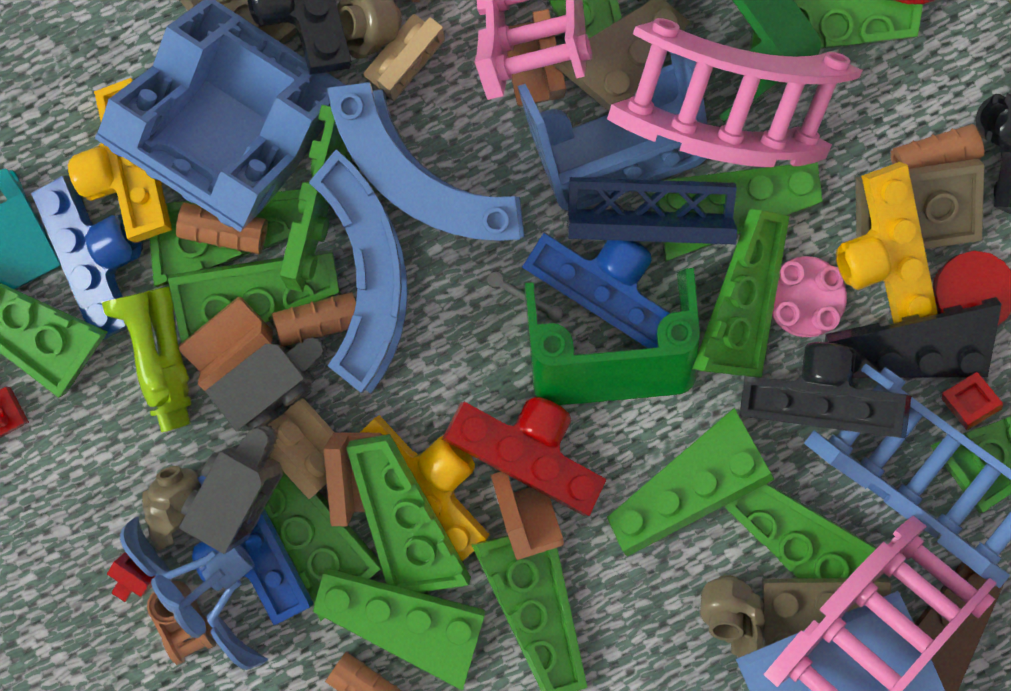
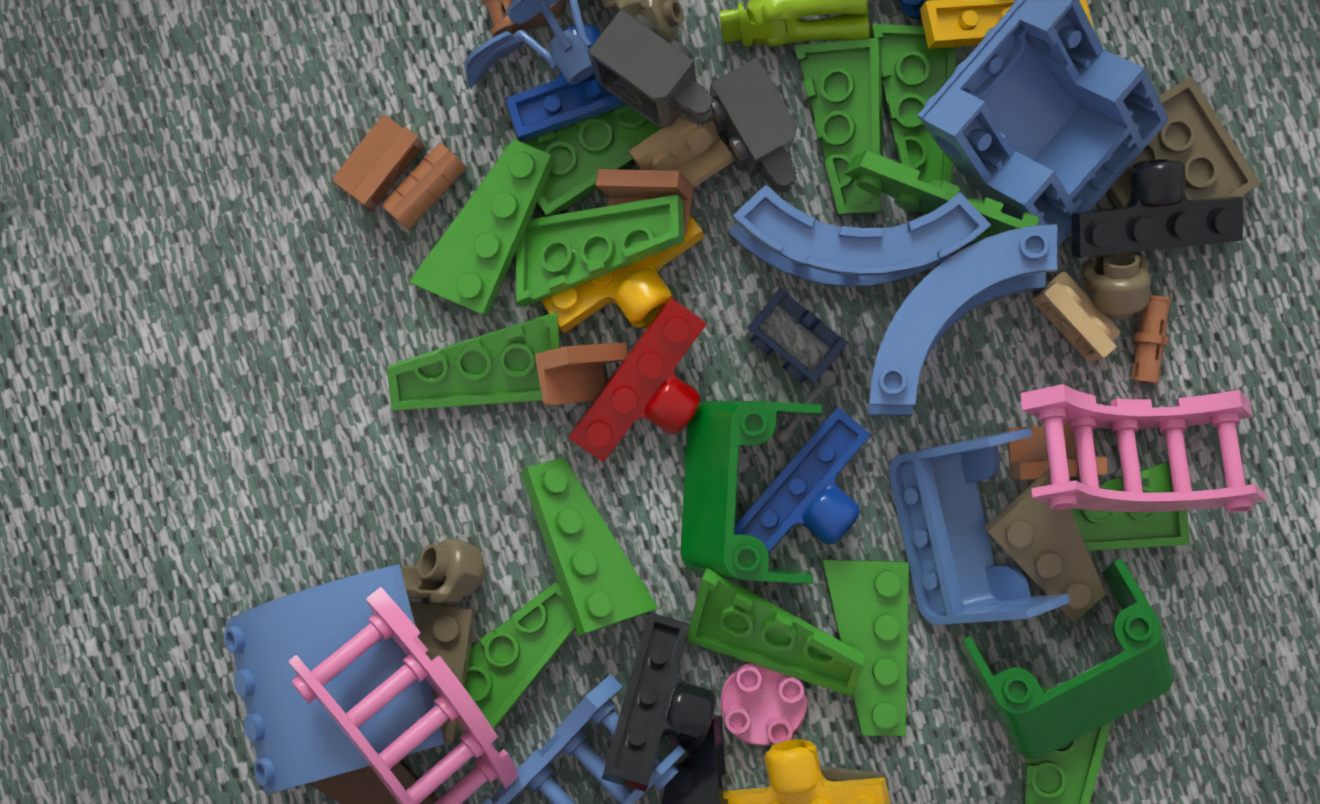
camera: 95 degrees right, 0 degrees up
(203, 227) = (925, 81): nougat axle -> none
(225, 341) = (805, 89): nougat panel -> none
(314, 319) = (813, 180): nougat axle -> none
(461, 315) = (796, 336): none -> window
(652, 225) = (862, 550): dark blue fence -> none
(729, 142) = (940, 642): bright pink fence -> none

